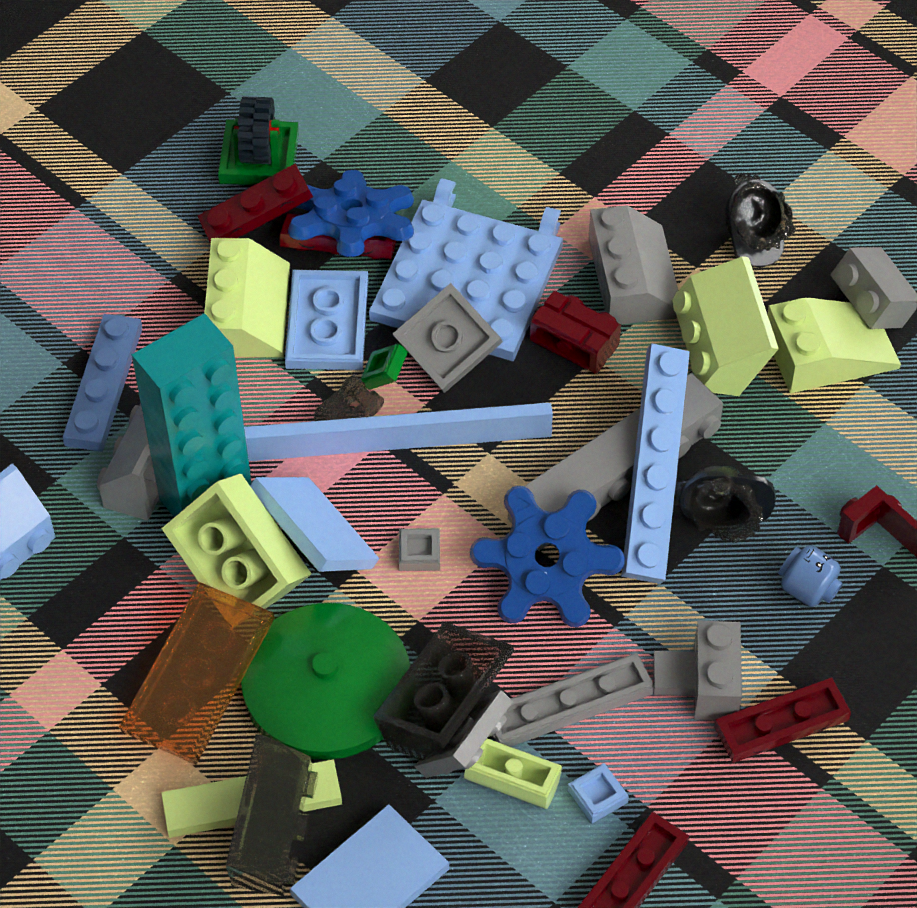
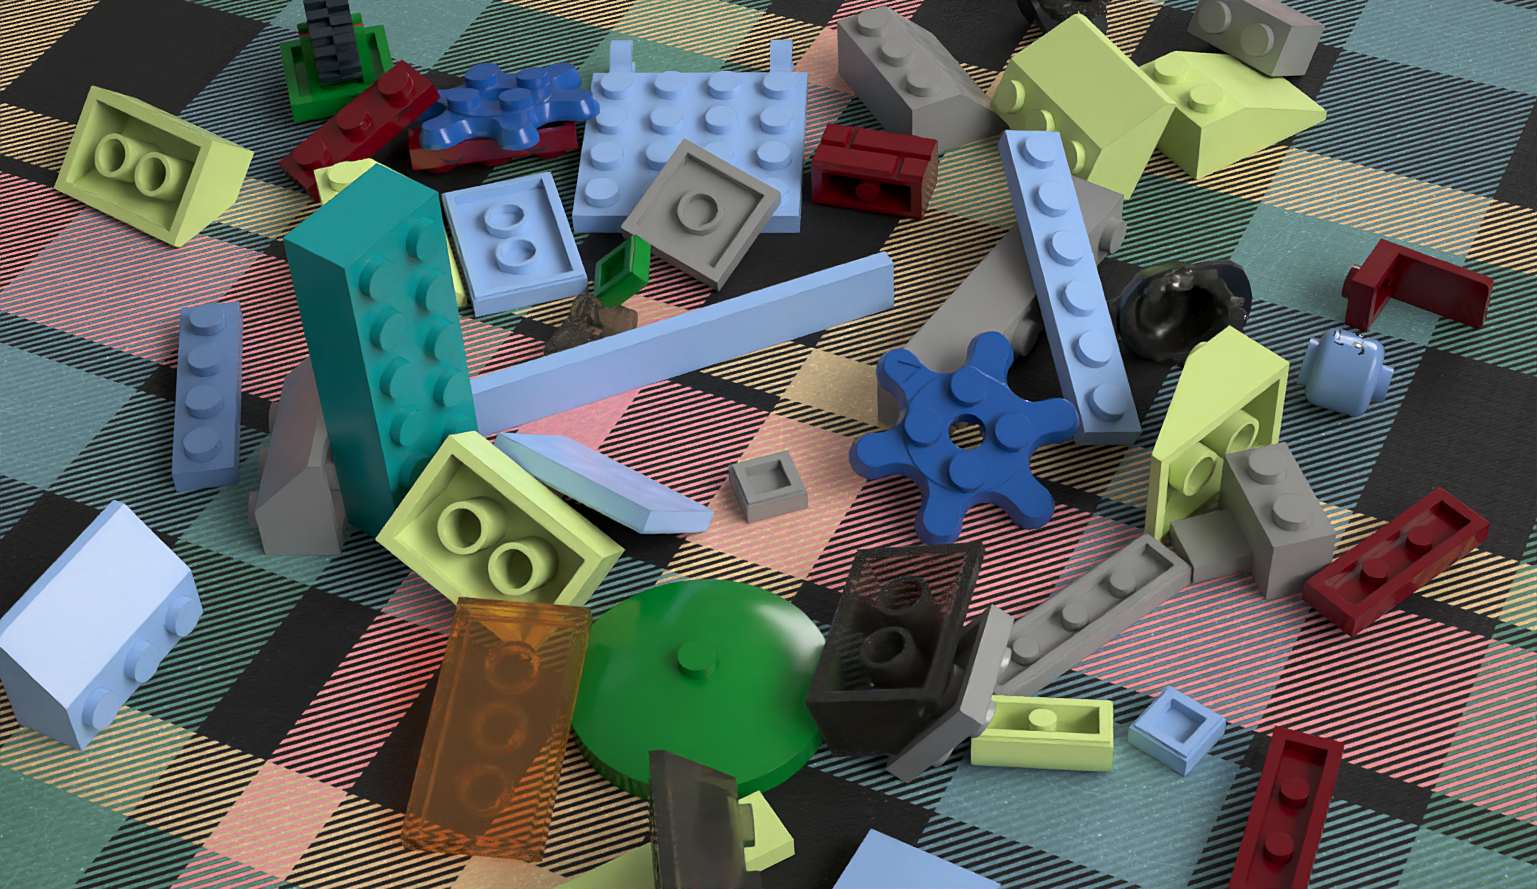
camera: 15 degrees left, 10 degrees down
(116, 198) = (150, 167): none -> yellowish green slope
(709, 586) = (1222, 405): none -> yellowish green slope

